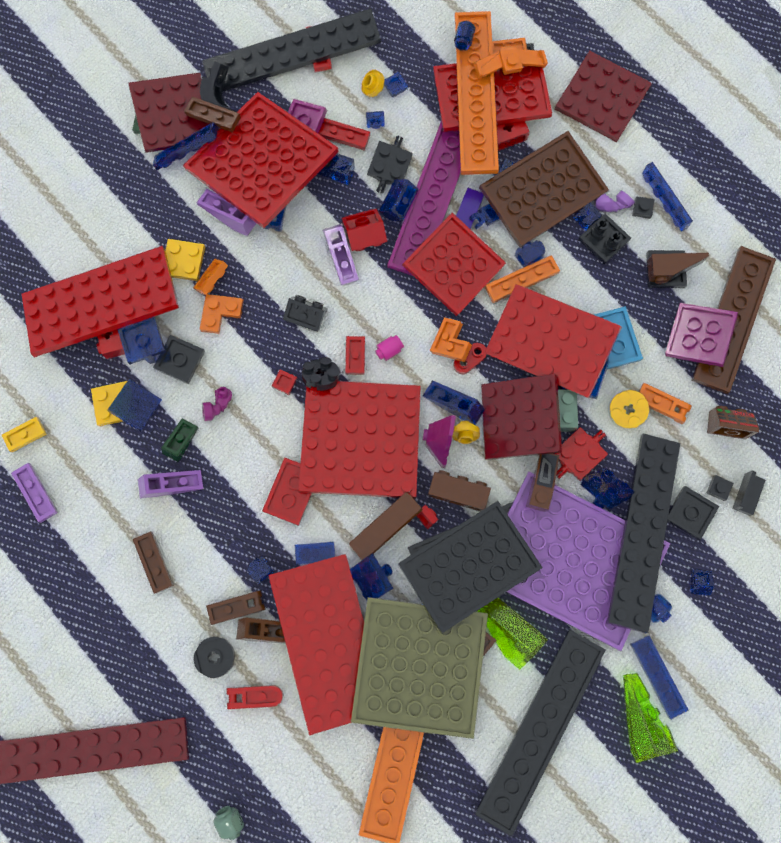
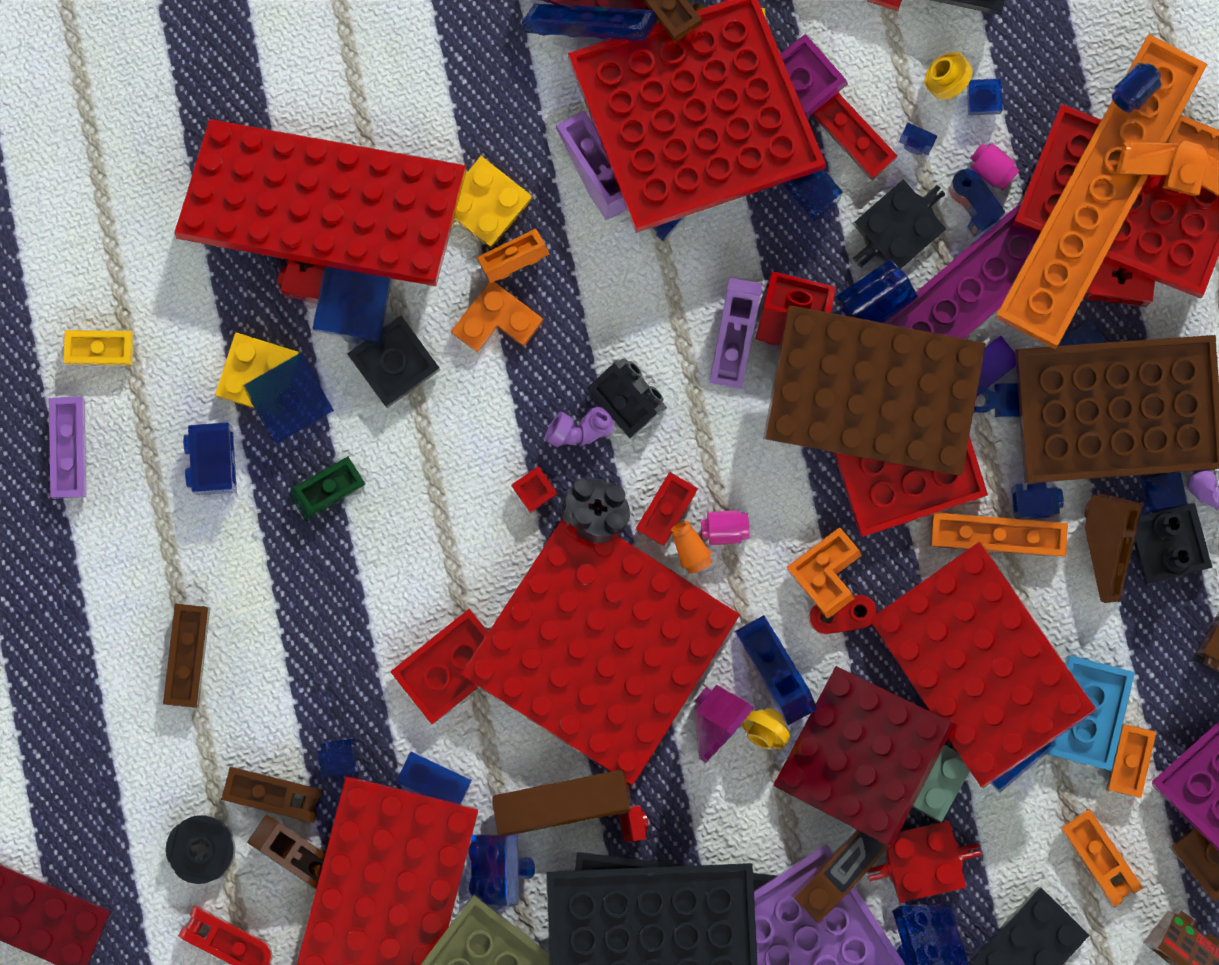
camera: 30 degrees right, 5 degrees up
(112, 457) = (211, 459): none -> clear blue brick
(169, 483) = (275, 550): medium lavender slope -> none
(222, 398) = (425, 461): magenta arm -> none
(296, 335) = (592, 427): none -> medium lavender arm
(377, 366) = (691, 549): none -> orange cone
(418, 112) = (993, 165): none -> dark pink brick
(420, 132) = (977, 199): none -> clear blue leg
(423, 240) = (874, 390): none -> reddish brown plate
(459, 491) = (705, 812): reddish brown brick -> none
(575, 248) = (1110, 537): none -> reddish brown slope
(634, 418) = (1036, 855): yellow plate -> none
(649, 349) = (1131, 761): none -> orange plate

